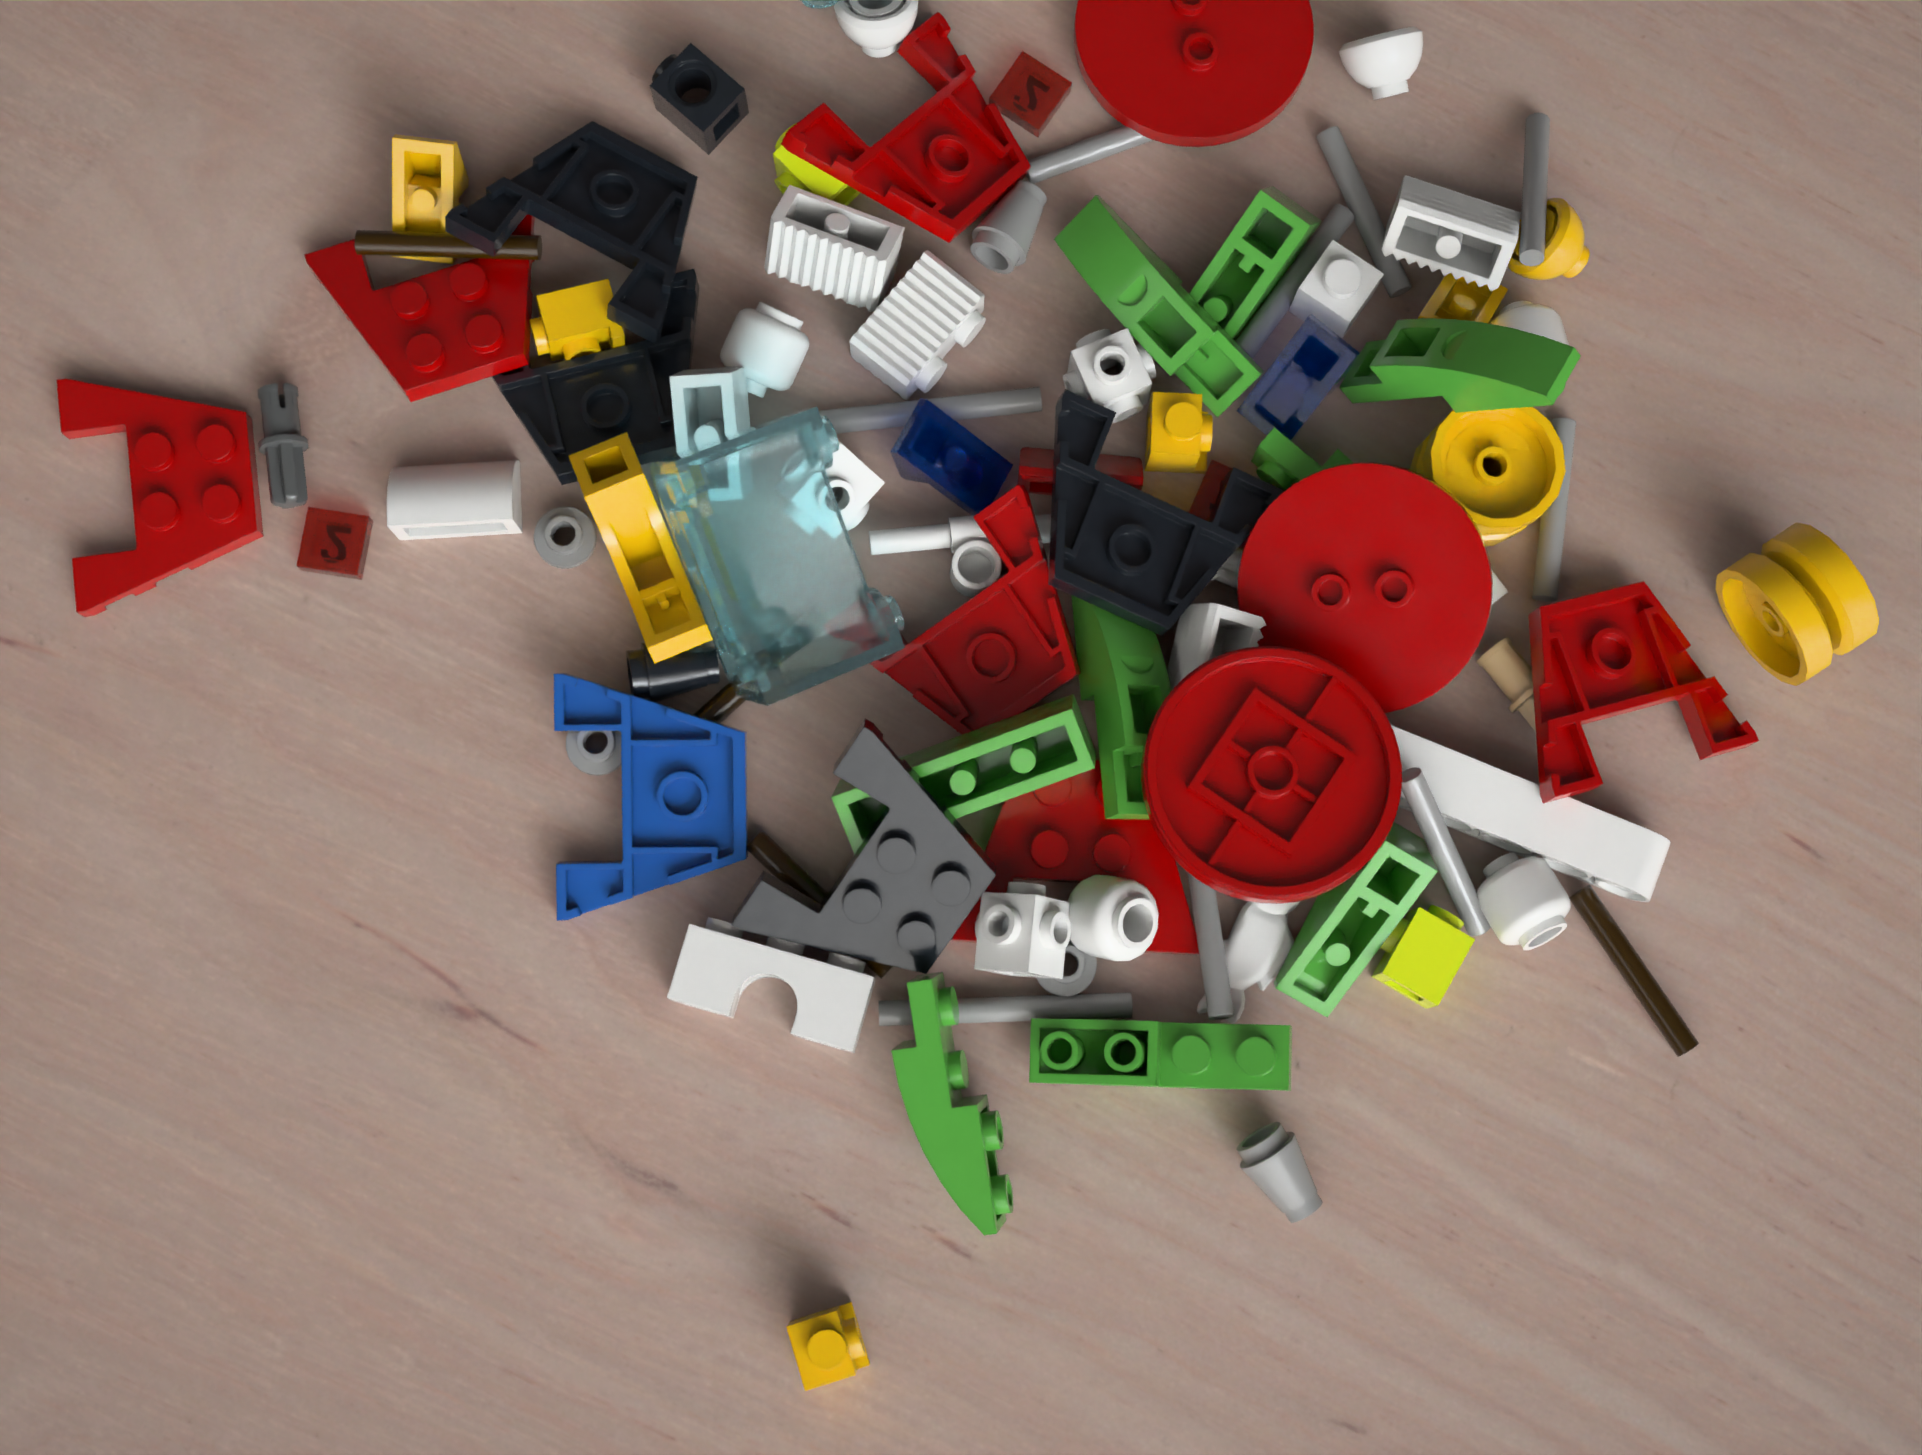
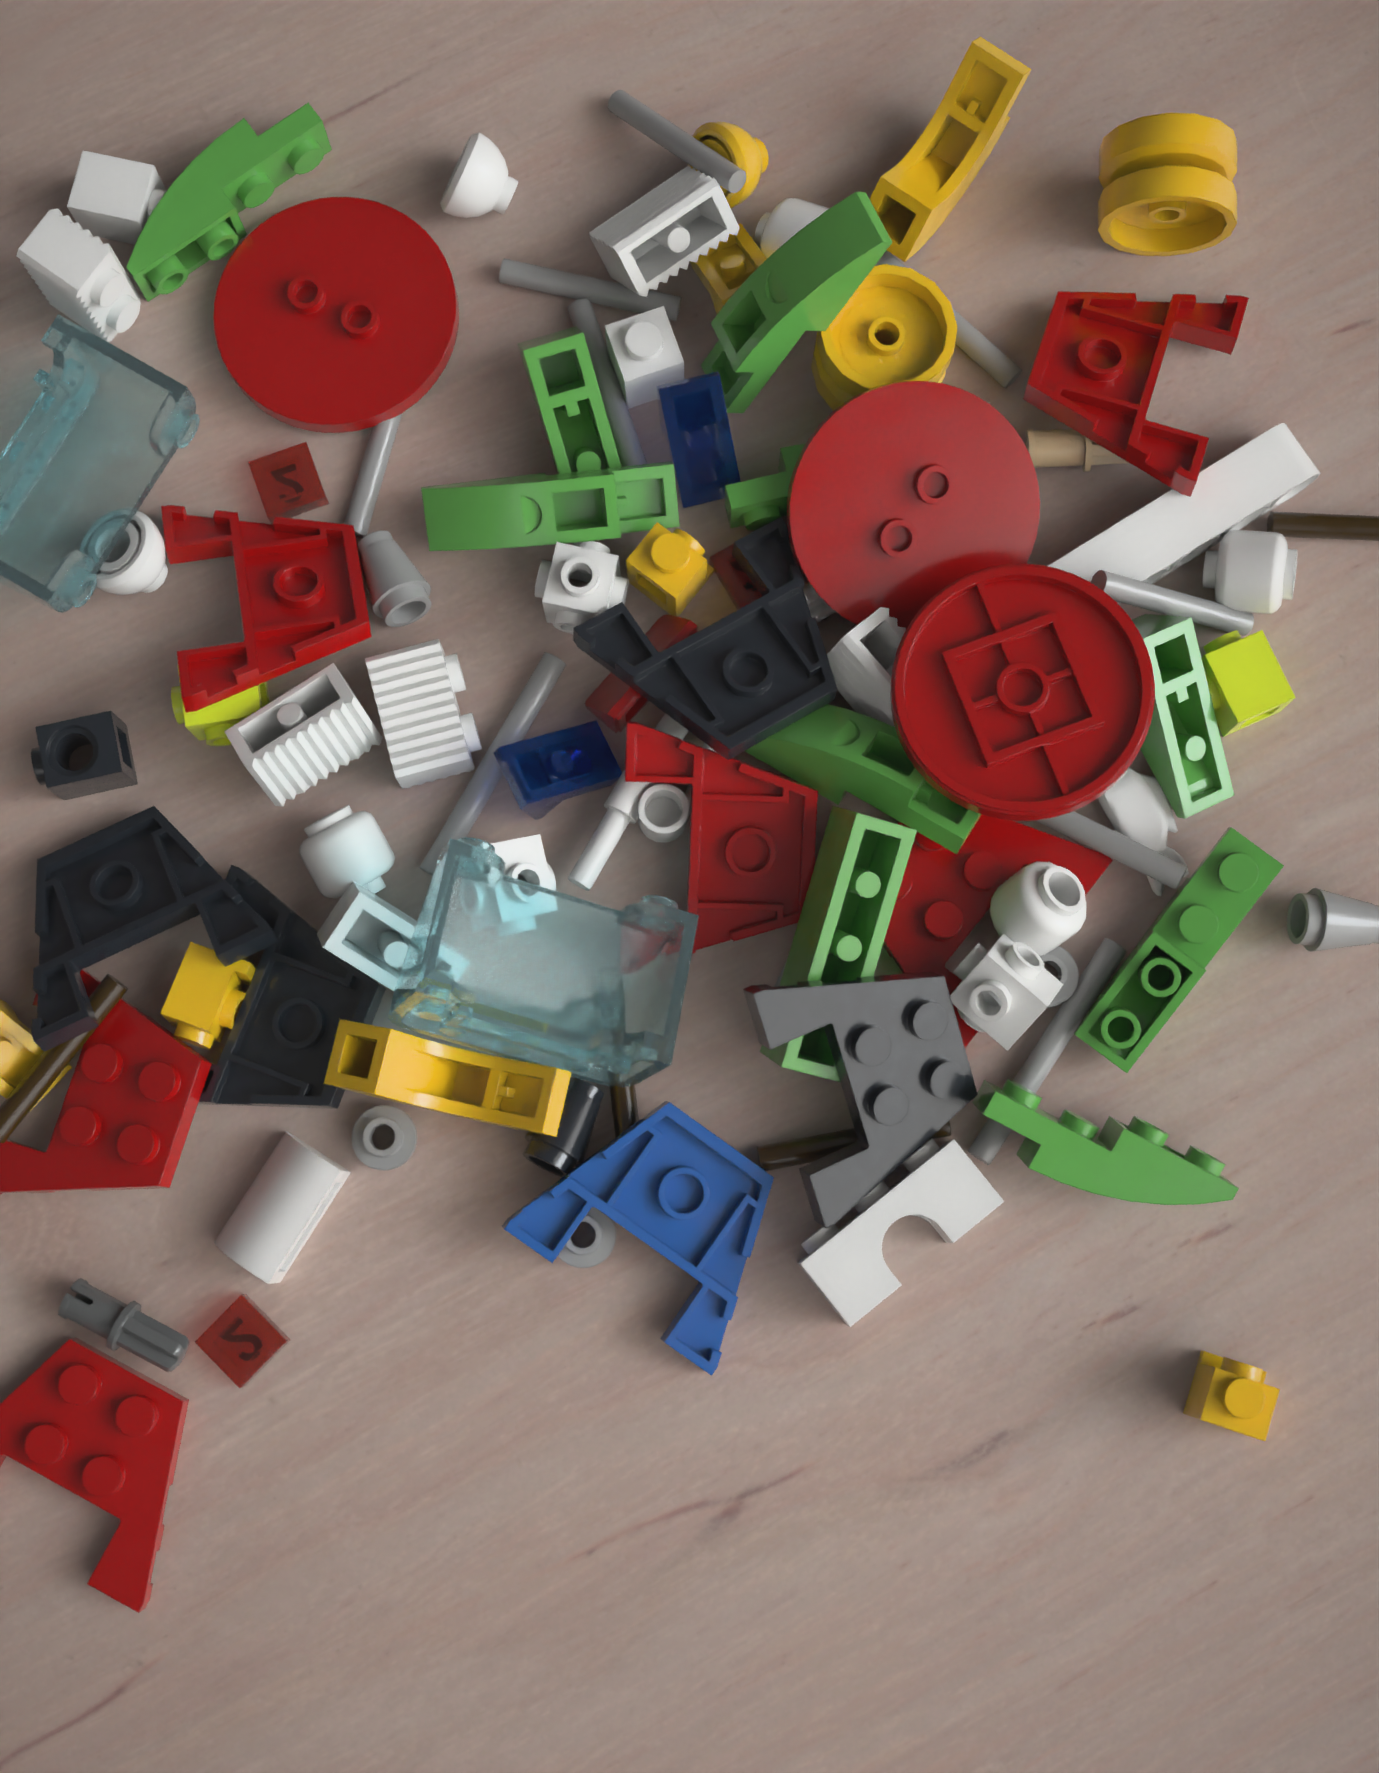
camera: 50 degrees left, 0 degrees up
(1685, 413) = (951, 150): none -> yellow arch

